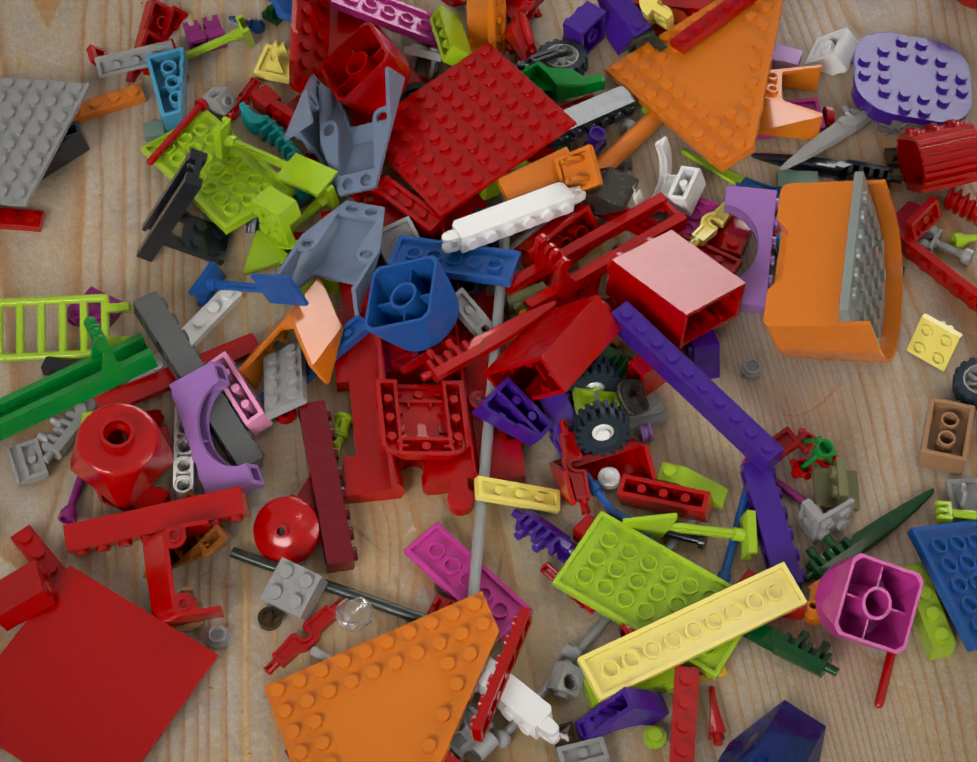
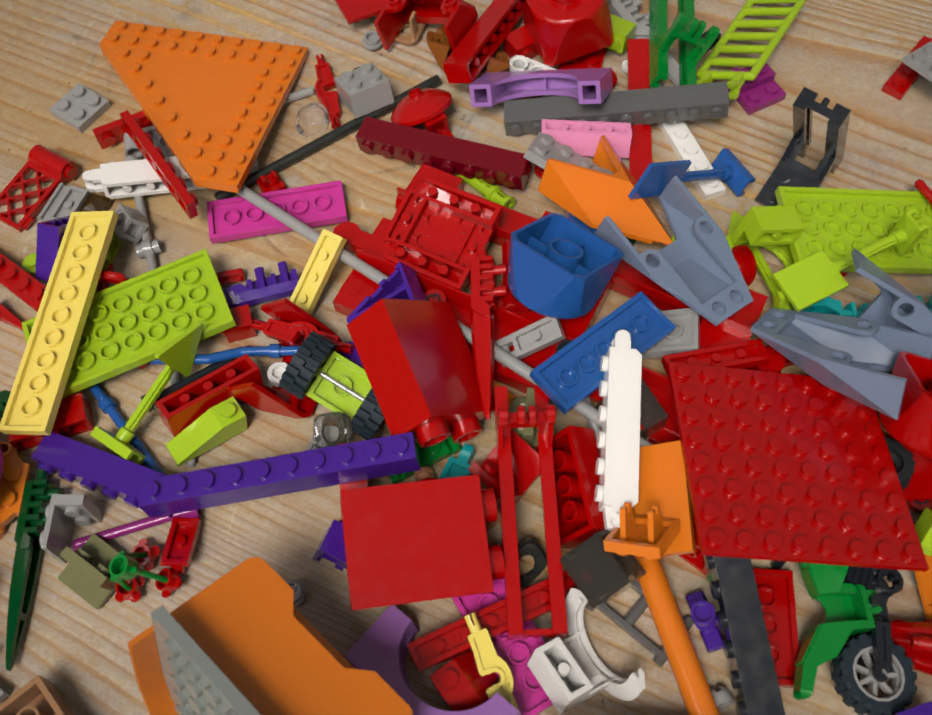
camera: 125 degrees right, 5 degrees up
(645, 433) = (299, 435): medium lavender bush -> none

